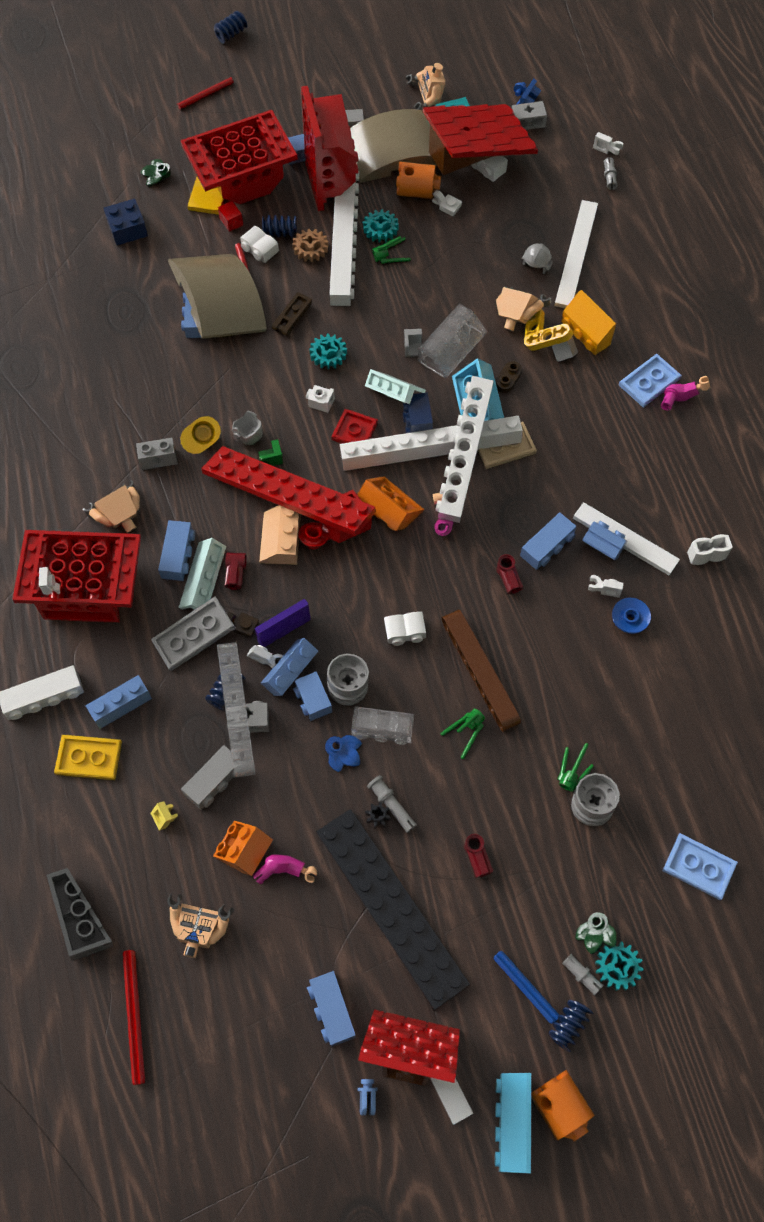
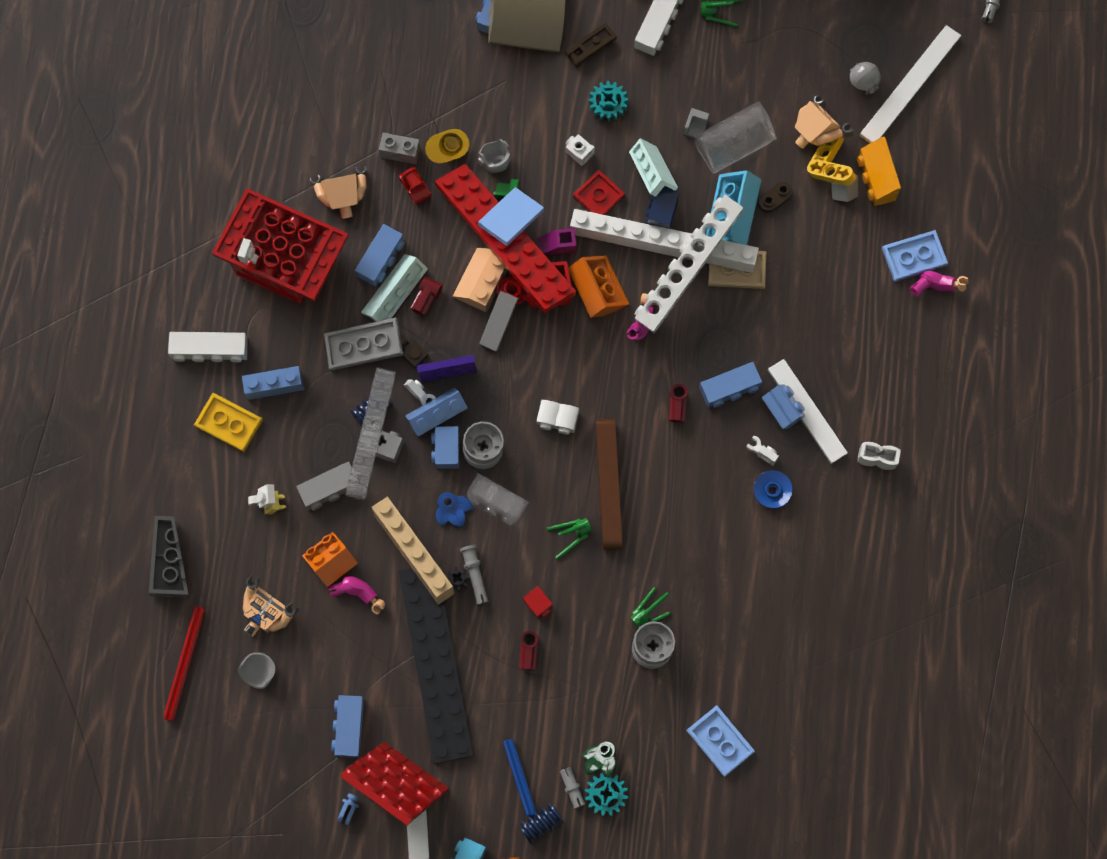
camera: 25 degrees right, 10 degrees up
(153, 814) = (264, 497): none -> white plate
(184, 478) = (415, 185): none -> red piece
(213, 990) = (257, 670): none -> light grey helmet
(285, 469) = (510, 216): none -> light blue tile
(312, 564) = (498, 321): none -> light grey tile
(323, 804) = (413, 550): none -> tan brick
(339, 476) = (558, 242): none -> magenta slope
(465, 806) = (538, 603): none -> red brick

